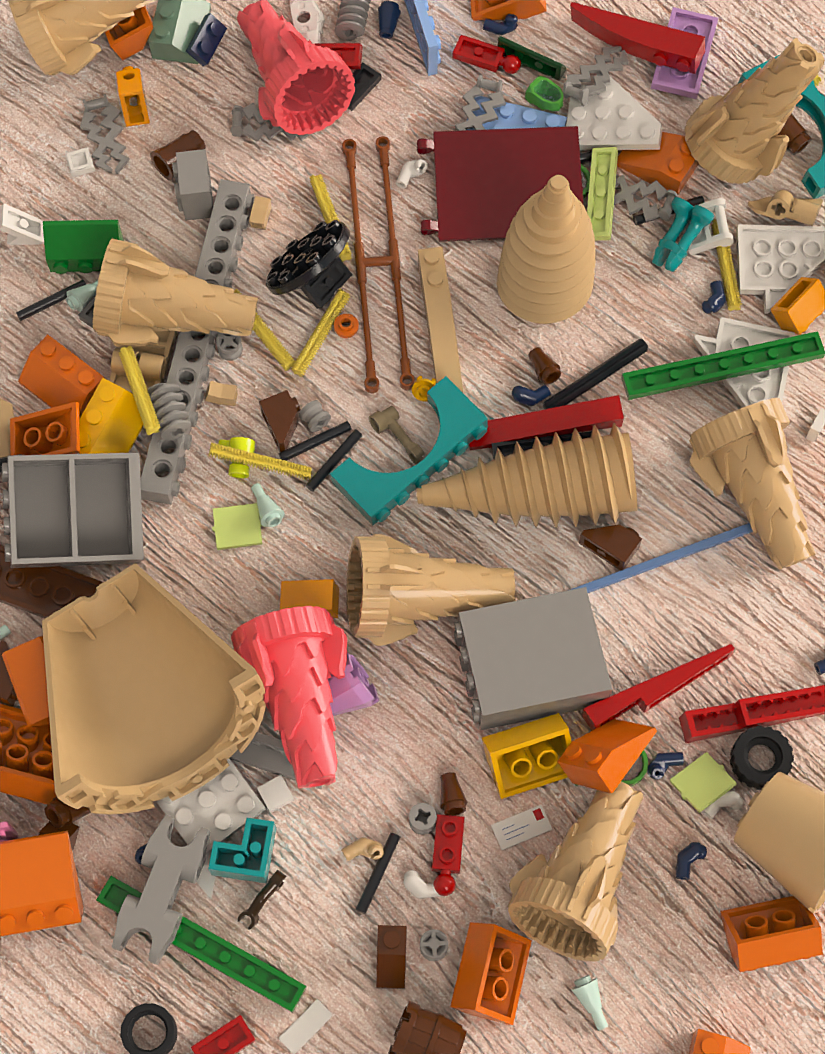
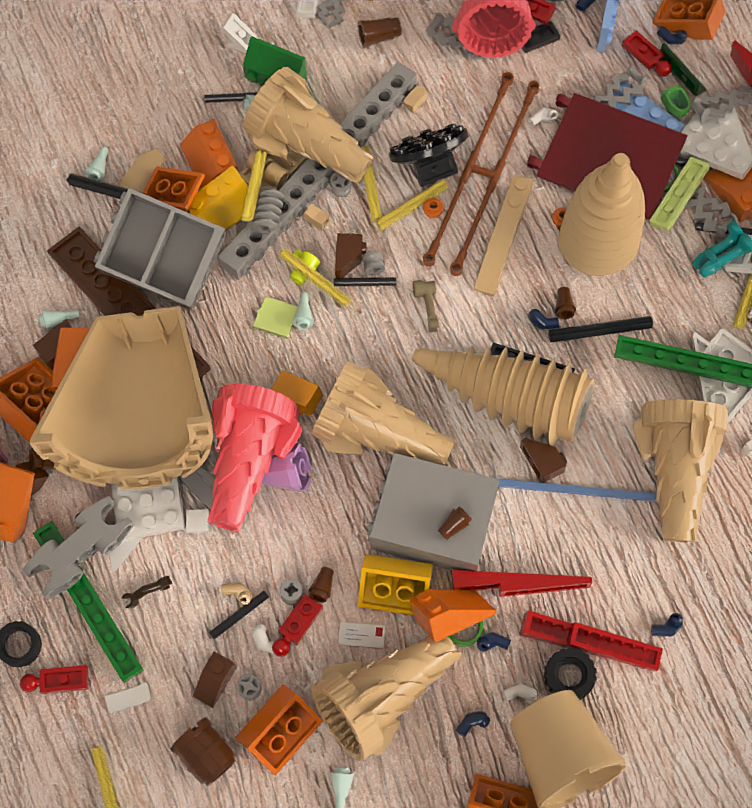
camera: 30 degrees right, 0 degrees up
(193, 184) = (376, 56): light grey brick -> none
(249, 860) = (153, 557): teal brick -> none
(327, 208) = (466, 117): light yellow axle -> none
(332, 462) = (371, 301): black bar -> none
(378, 493) = (473, 318): teal arch -> none
(421, 388) = (465, 280): yellow plate -> none
(487, 279) = (557, 220): none -> orange plate
(546, 422) = (547, 346): red slope -> none
(567, 654) = (455, 522): none -> reddish brown cone
(703, 782) = (514, 670): yellowish green piece -> none
(717, 299) = (726, 314): dark blue arm -> none

